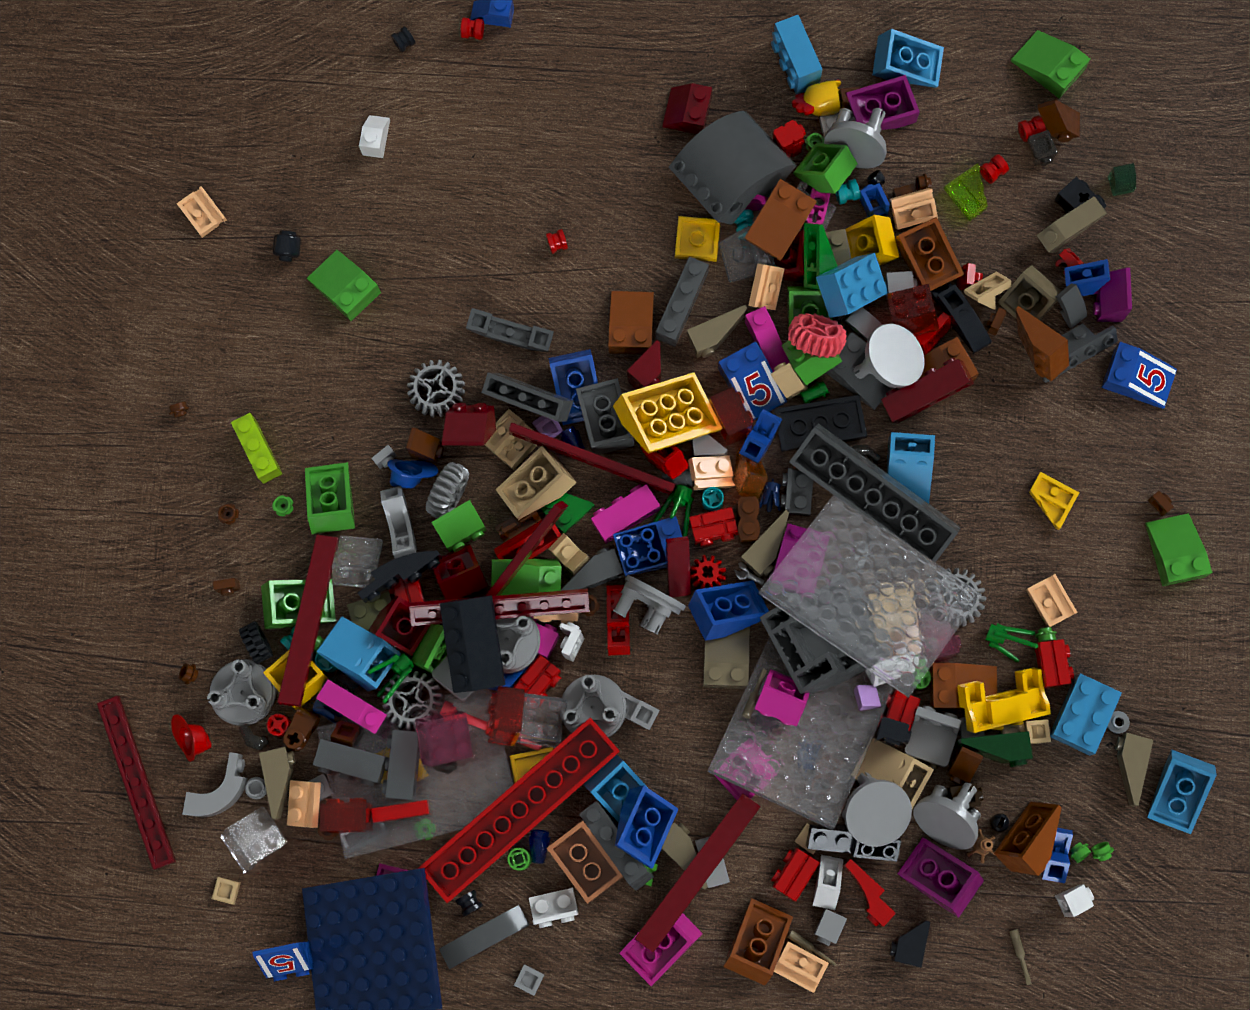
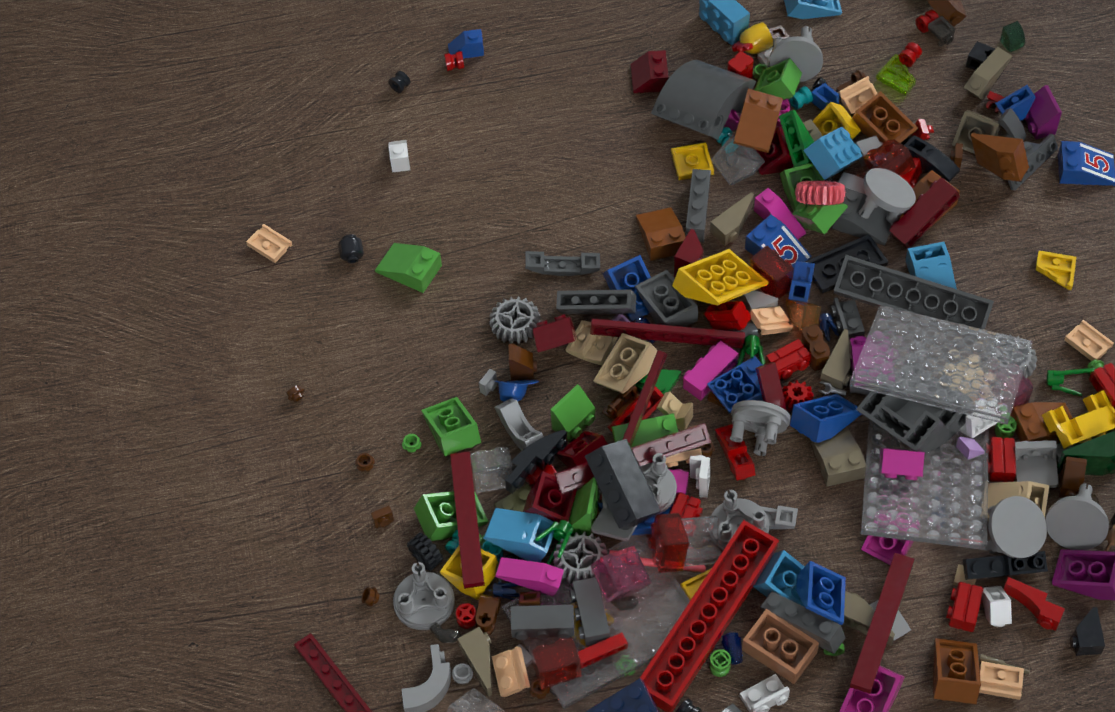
camera: 20 degrees left, 20 degrees down
(189, 737) = (387, 646): red piece -> none
(256, 448) = (374, 403): lime brick -> none
(447, 489) = (552, 387): light grey gear -> none
(557, 241) = (578, 189): red wheel -> none
(597, 571) = (707, 412): dark grey slope -> none
(710, 496) = (778, 339): teal wheel -> none
(748, 710) = (875, 469): dark tan piece -> none
(766, 286) = (763, 174): light nougat plate -> none
(788, 380) = (809, 235): tan slope -> none
(814, 392) = (834, 241): green pin -> none
(829, 927) = (1012, 639): light grey brick -> none
(891, 96) = (822, 27): magenta slope -> none
(893, 732) = (1003, 465): black window -> none
(988, 288) = (940, 135): tan slope -> none

